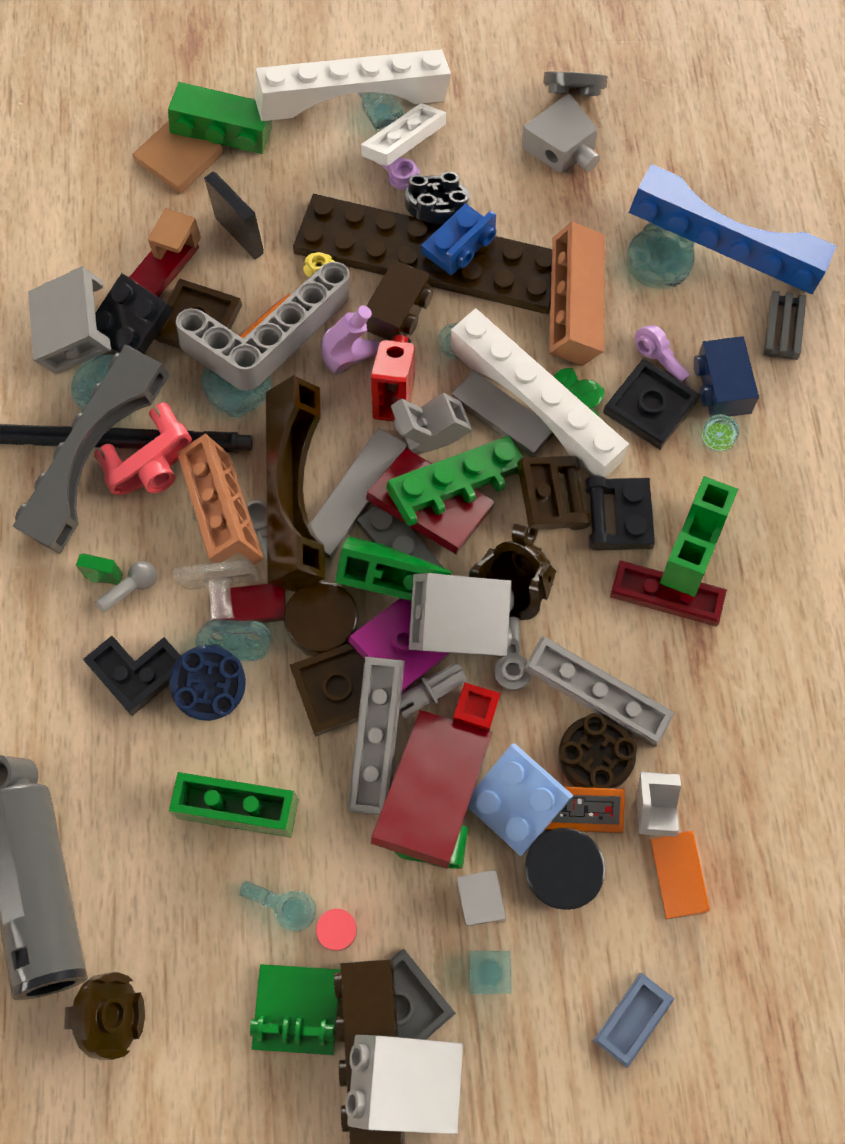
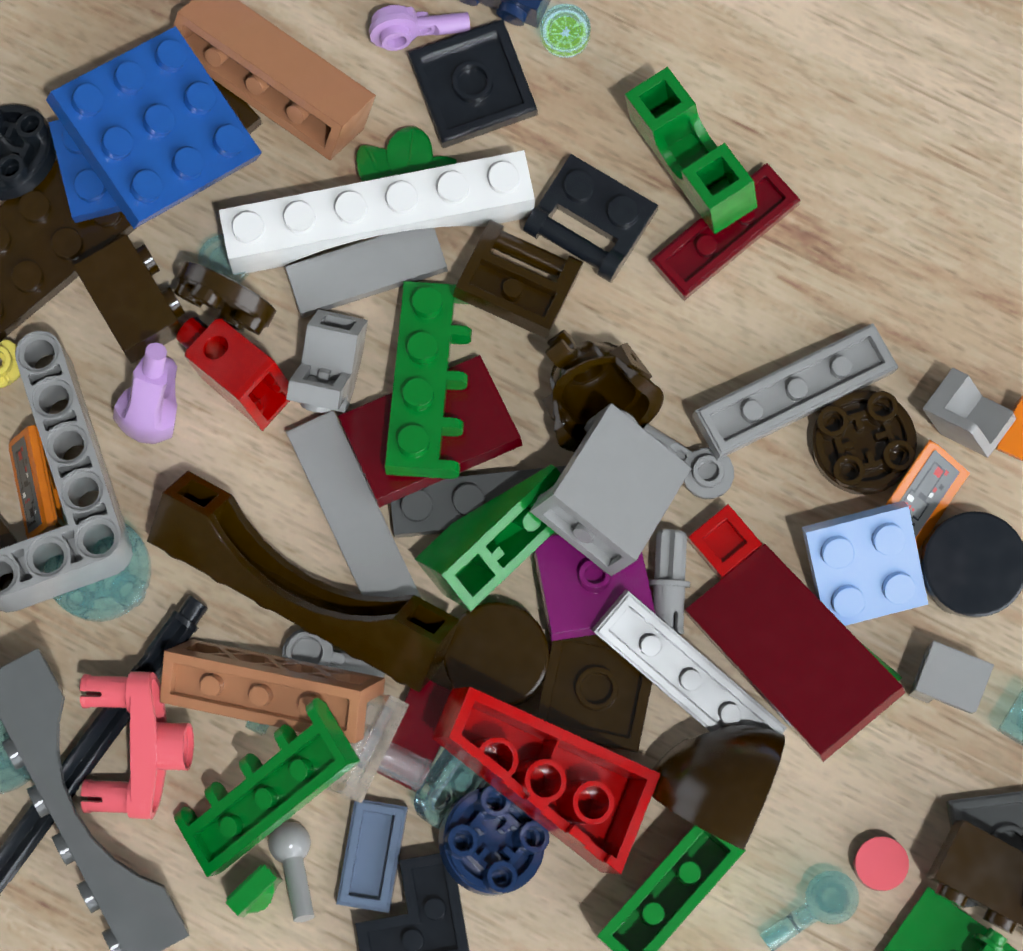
camera: 55 degrees left, 10 degrees up
(158, 536) = (269, 792): none -> green hinge
(167, 620) = (372, 856): none -> sand blue tile
(263, 693) = (557, 778): none -> red wedge
(321, 787) = (721, 779): none -> dark brown brick
(427, 329) = (236, 303): none -> dark brown tile
(498, 248) = (153, 126): none -> blue plate

